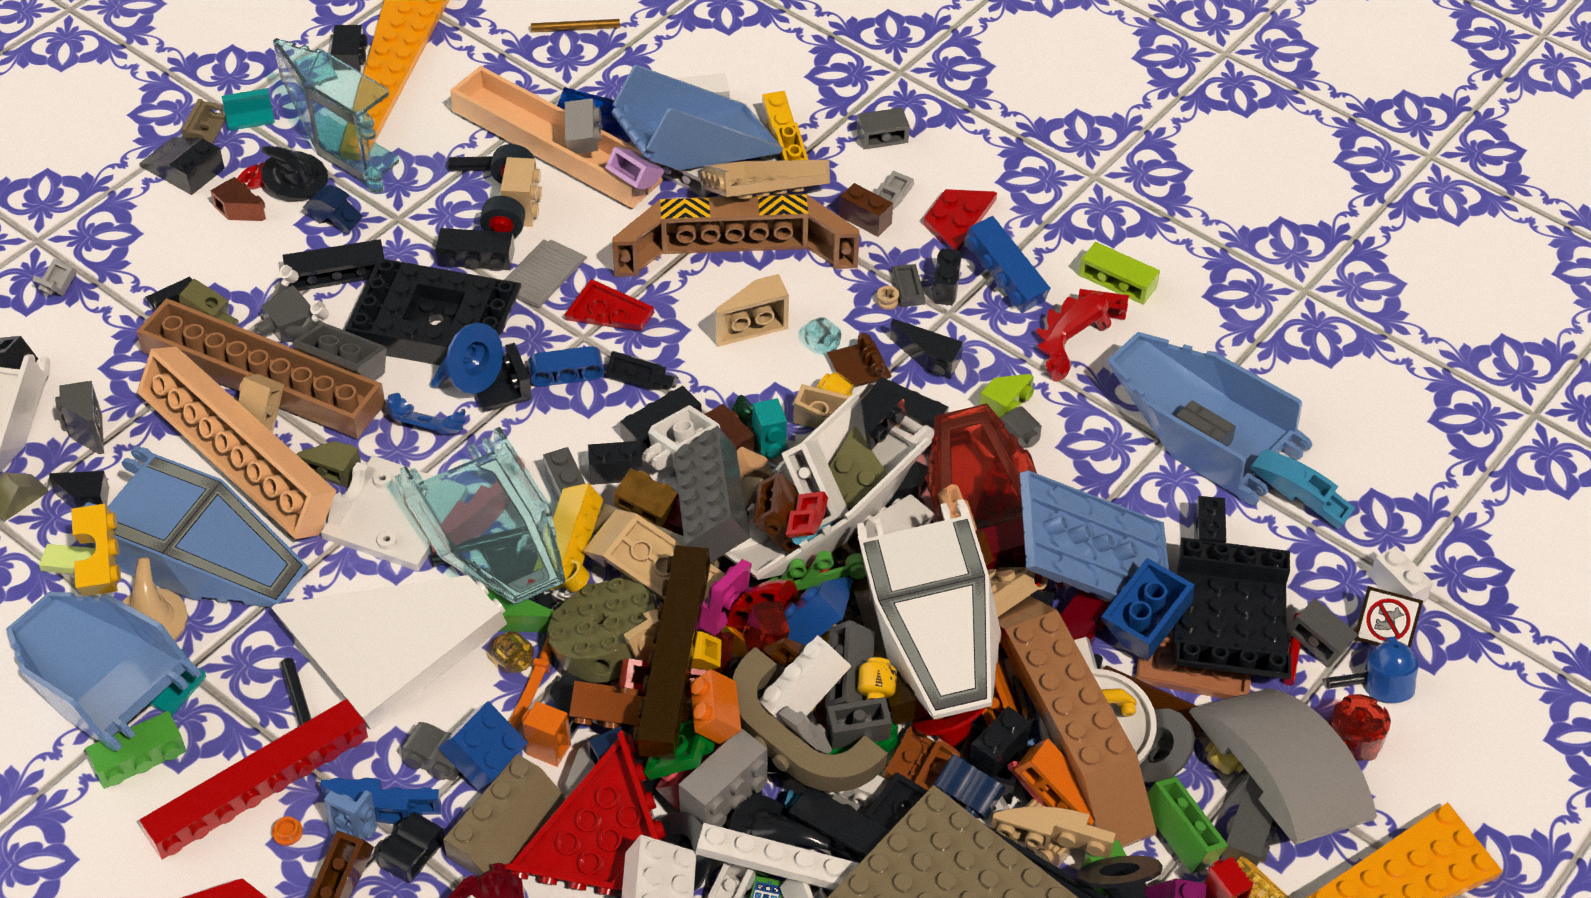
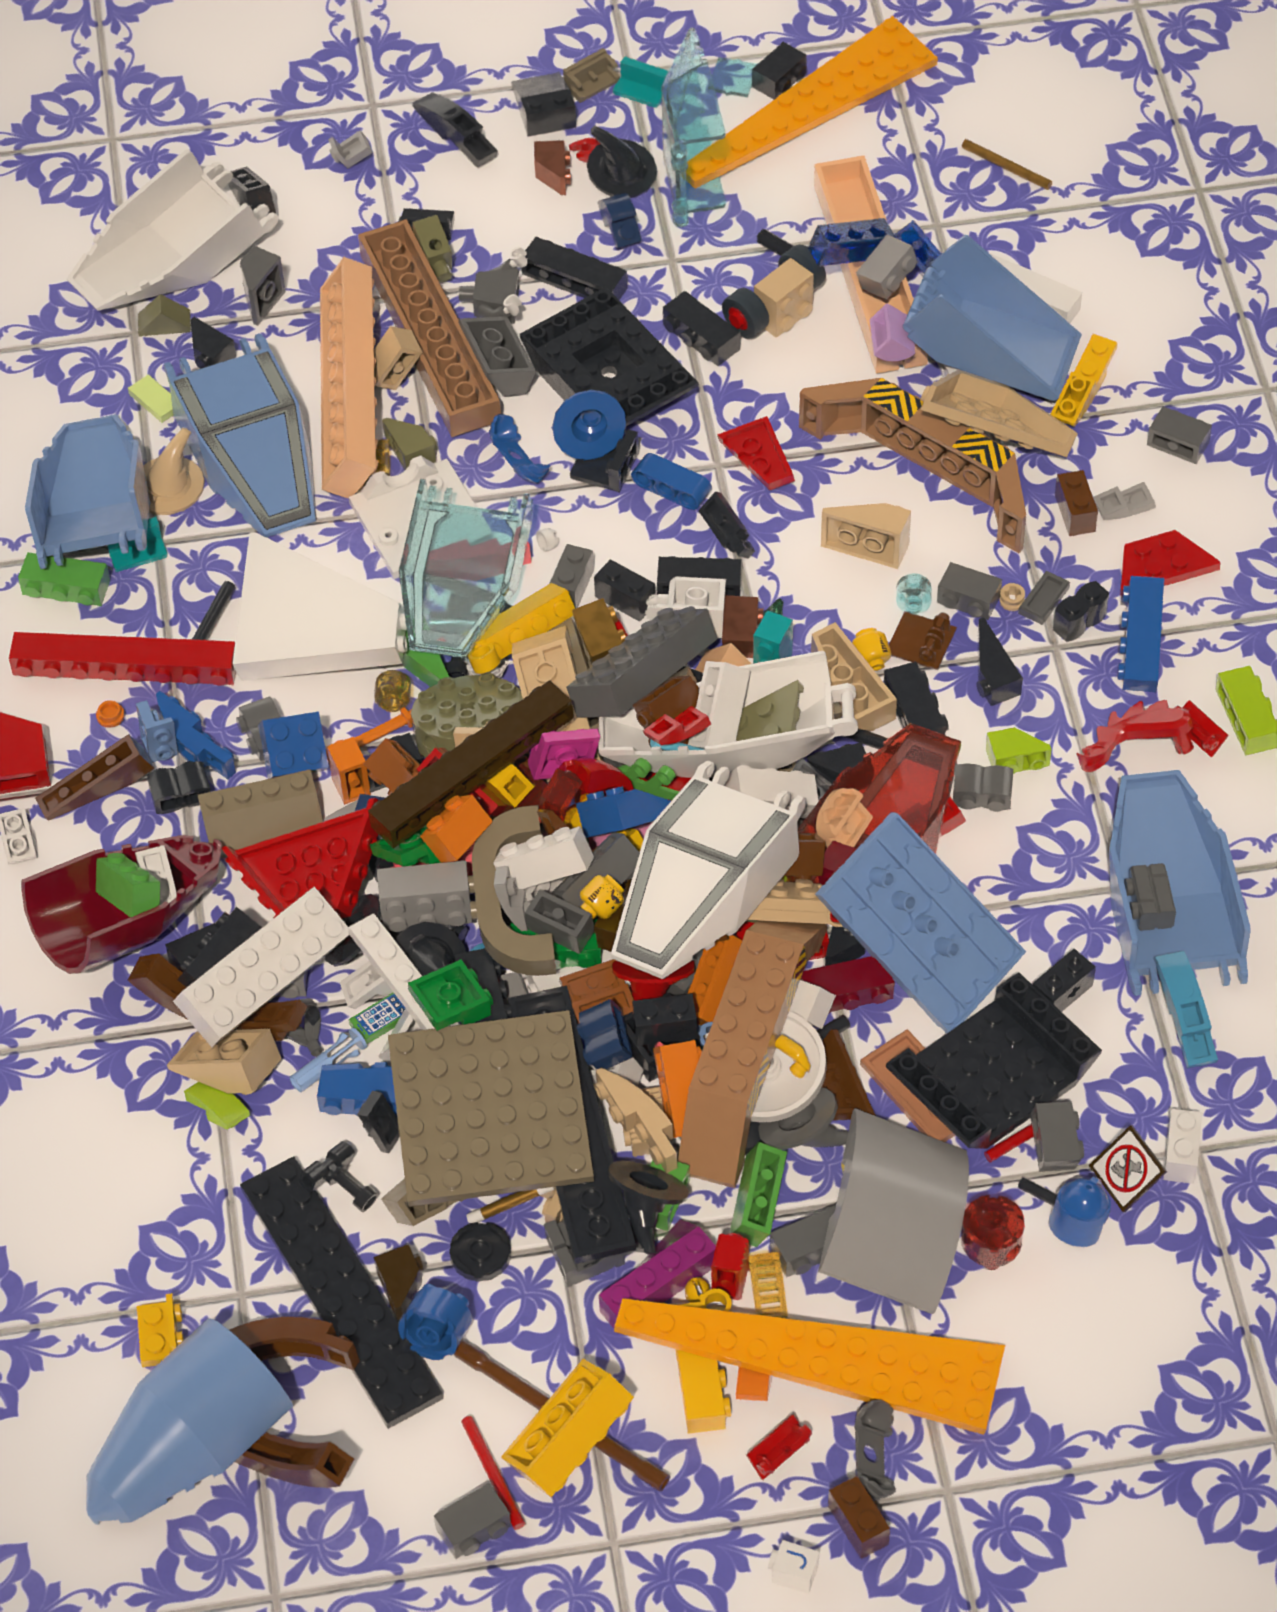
camera: 45 degrees right, 5 degrees up
(99, 572) = (145, 418): yellow arch -> none
(125, 211) = (456, 123): none -> black slope
(539, 123) = (847, 241): none -> clear blue brick
(545, 271) = (741, 385): light grey window -> none
(835, 840) = (451, 996): none -> green plate
(858, 310) = (969, 590): none -> dark grey brick
(881, 412) = (820, 683): black slope -> none
(1148, 608) = (916, 1007): blue slope -> none

